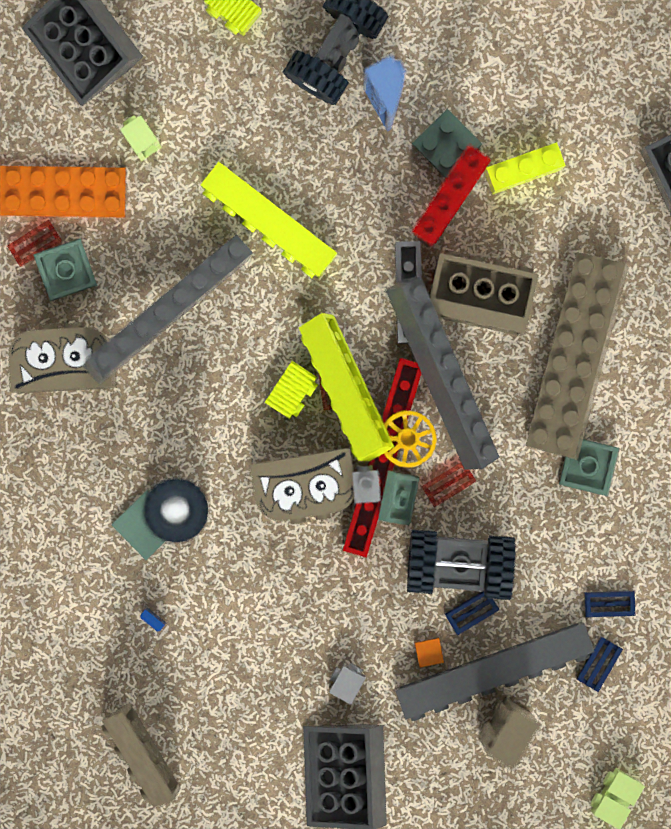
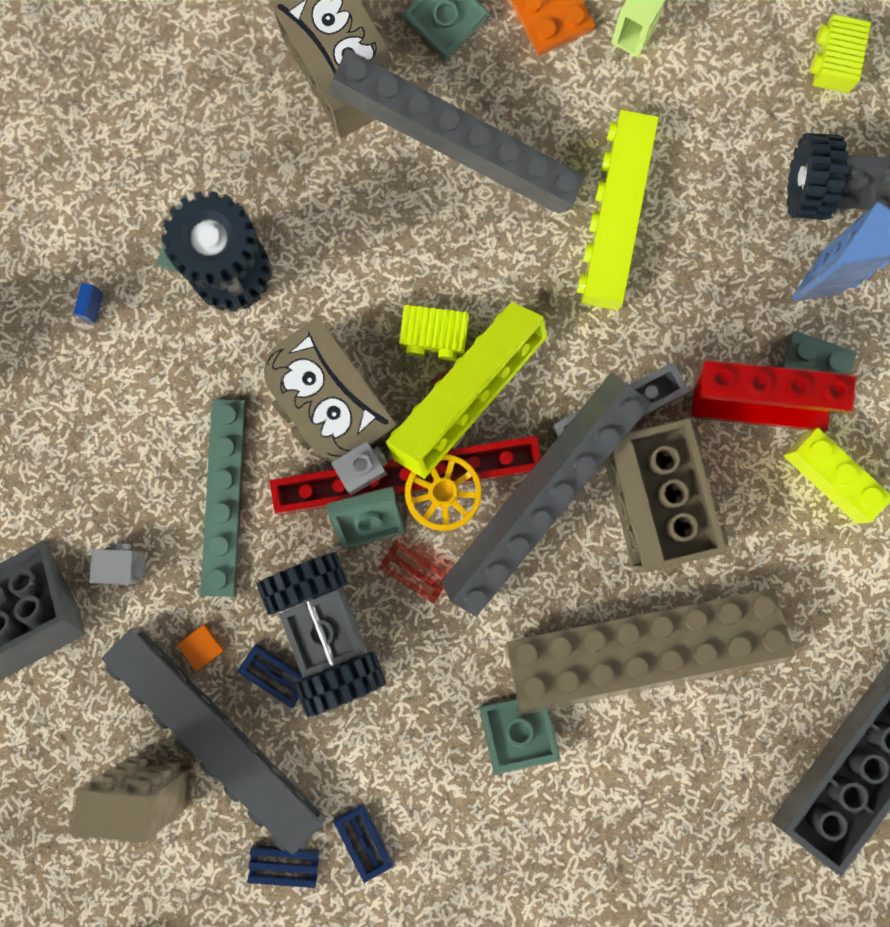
camera: 70 degrees right, 5 degrees down
(334, 589) = (223, 498): none -> sand green plate

